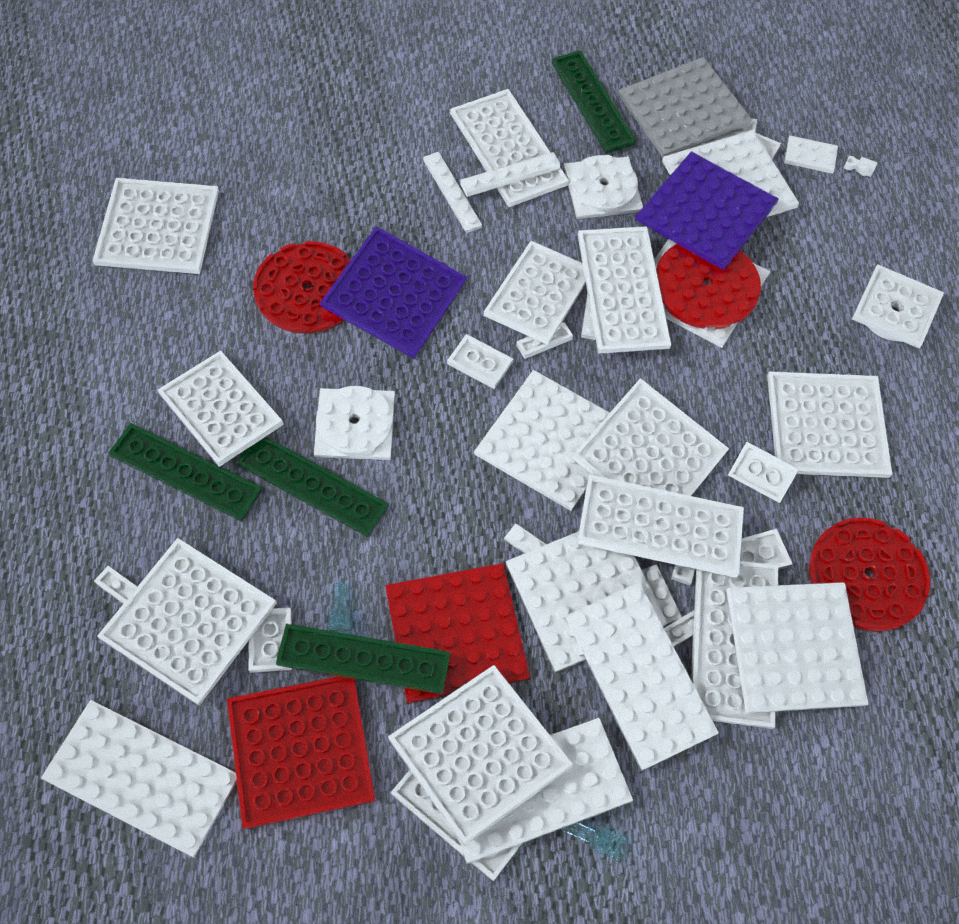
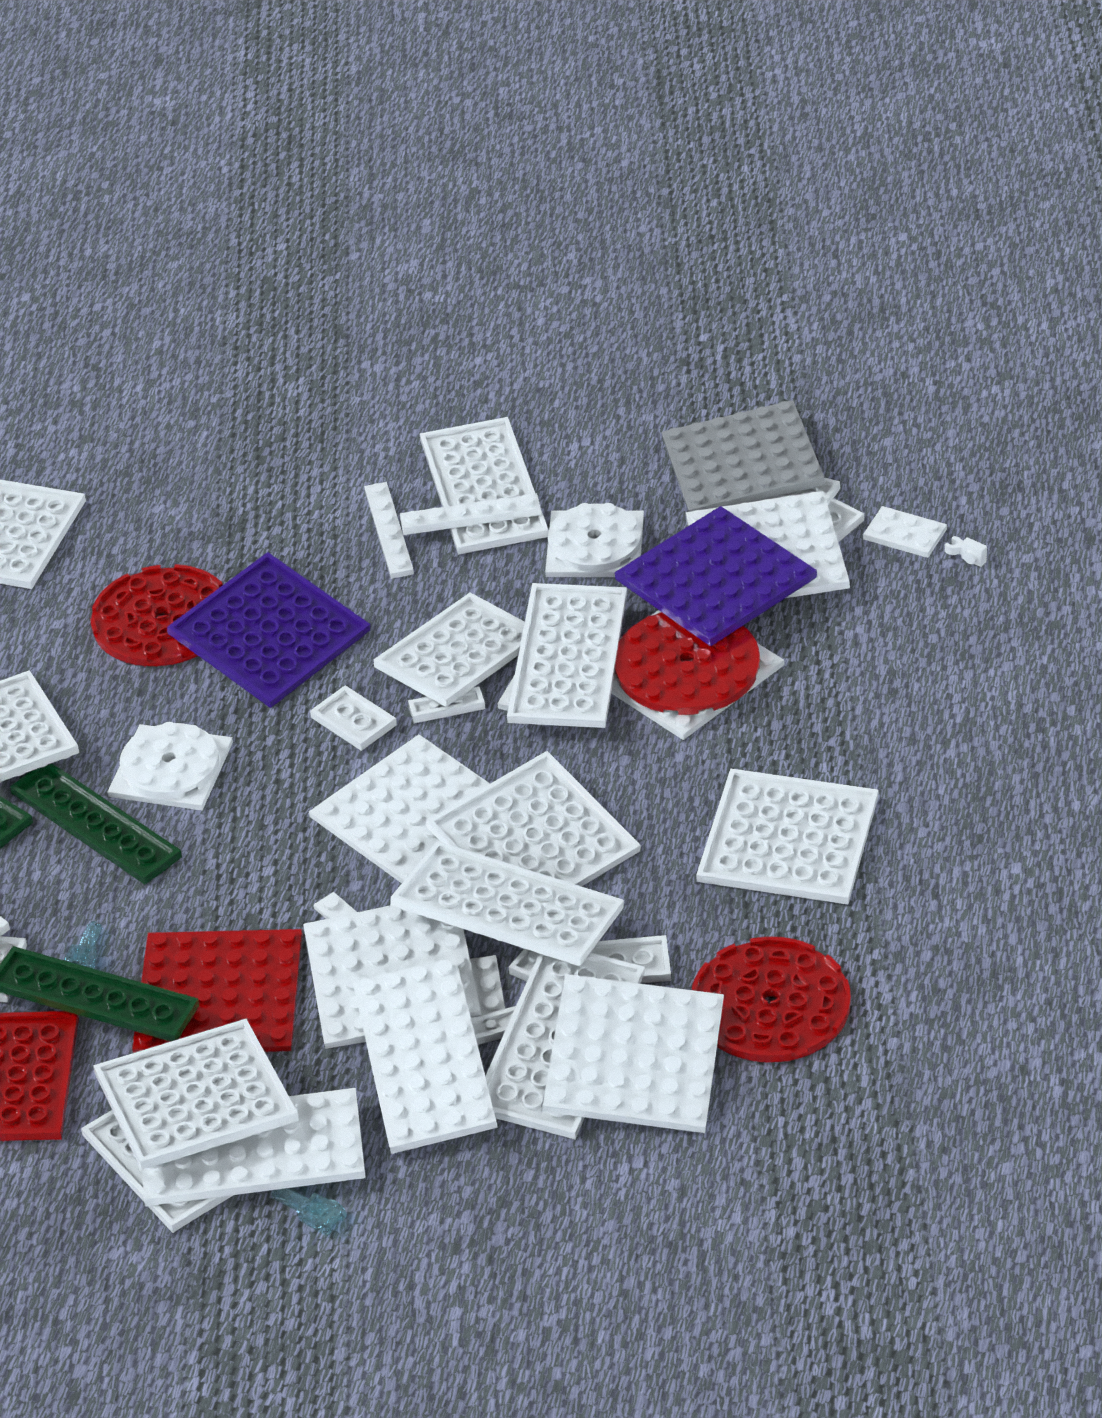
camera: 20 degrees right, 20 degrees down
(593, 102) = (621, 442): dark green plate -> none
(763, 472) = (673, 873): white plate -> none
(913, 299) = (936, 695): white piece -> none

